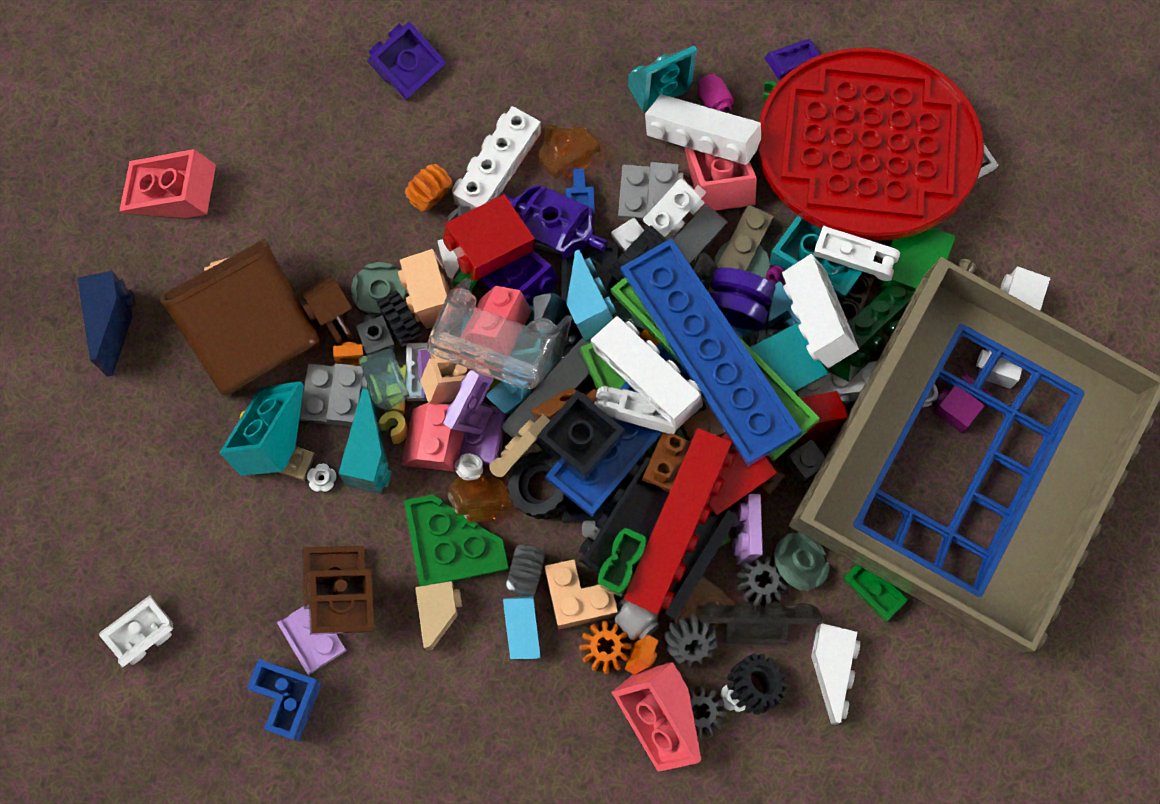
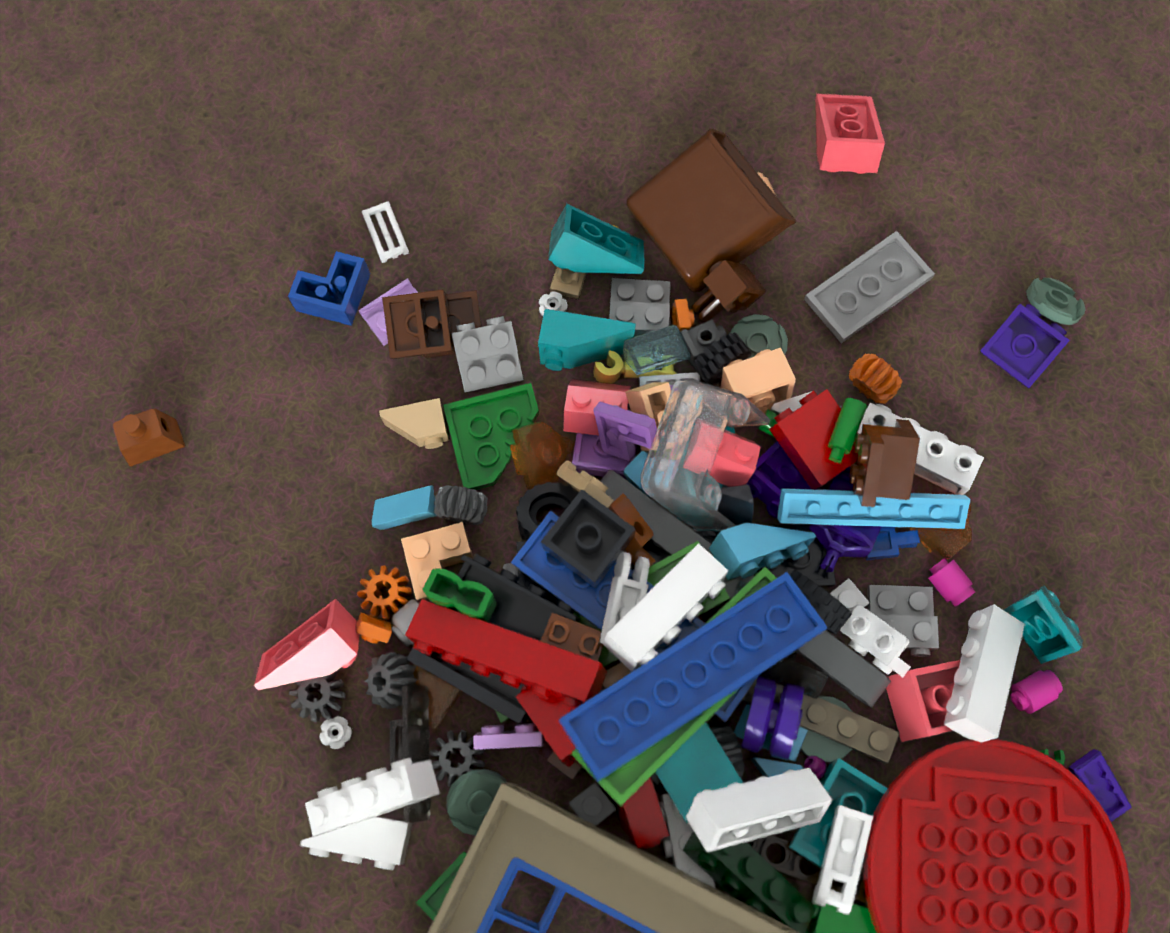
camera: 90 degrees right, 0 degrees up
(106, 317) = (696, 90): dark blue slope -> none
(137, 631) = (397, 159): white bracket -> none
(245, 639) = (392, 252): none -> white tile
(333, 185) = (869, 286): none -> light grey plate
(366, 29) = (1055, 301): none -> sand green tile
(371, 540) = (487, 354): none -> light grey plate
(469, 467) = (573, 441): white plate -> none
(486, 209) = (846, 428): none -> green cylinder
(519, 180) = (884, 462): none -> reddish brown bracket
(557, 200) = (844, 508): none -> medium azure plate
(619, 148) = (951, 582): none -> dark pink brick
(744, 689) = (342, 734): black tyre -> none
(801, 651) = (372, 797): none -> white brick

